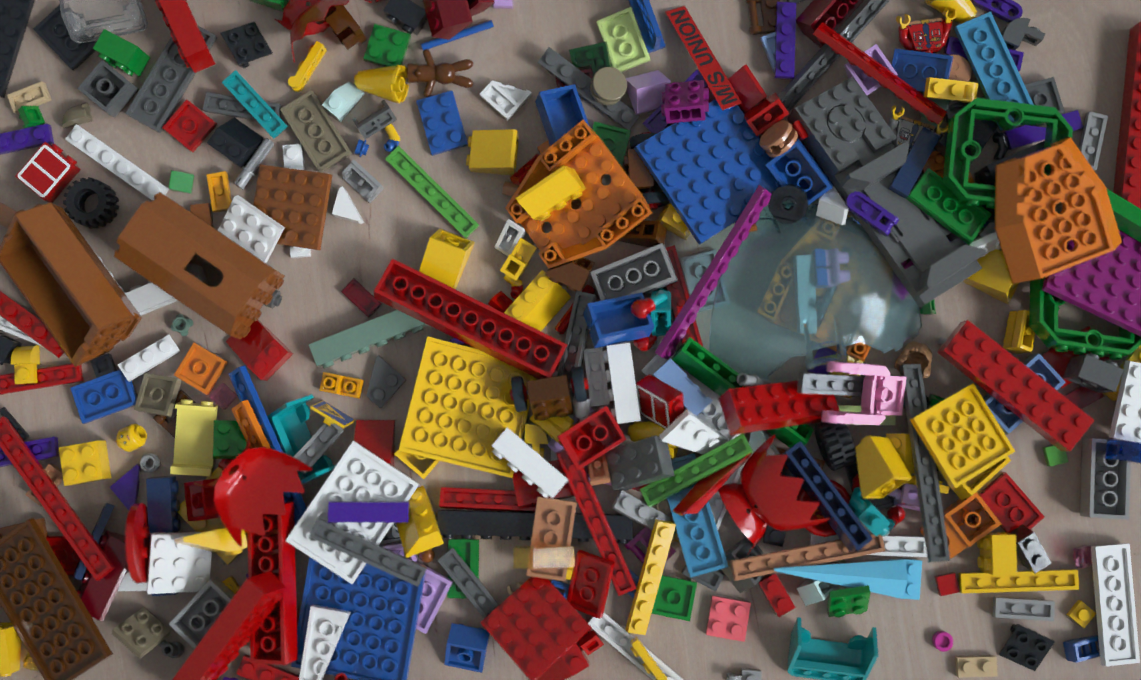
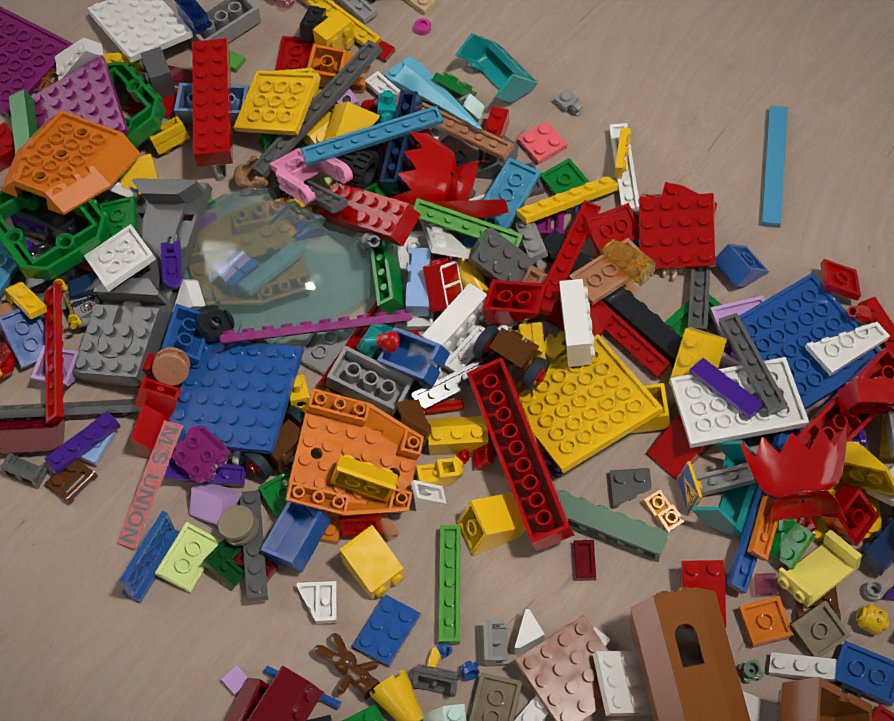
camera: 135 degrees left, 25 degrees down
(846, 472) = (371, 135): none -> dark azure tile
(915, 179) = (119, 257): none -> white plate

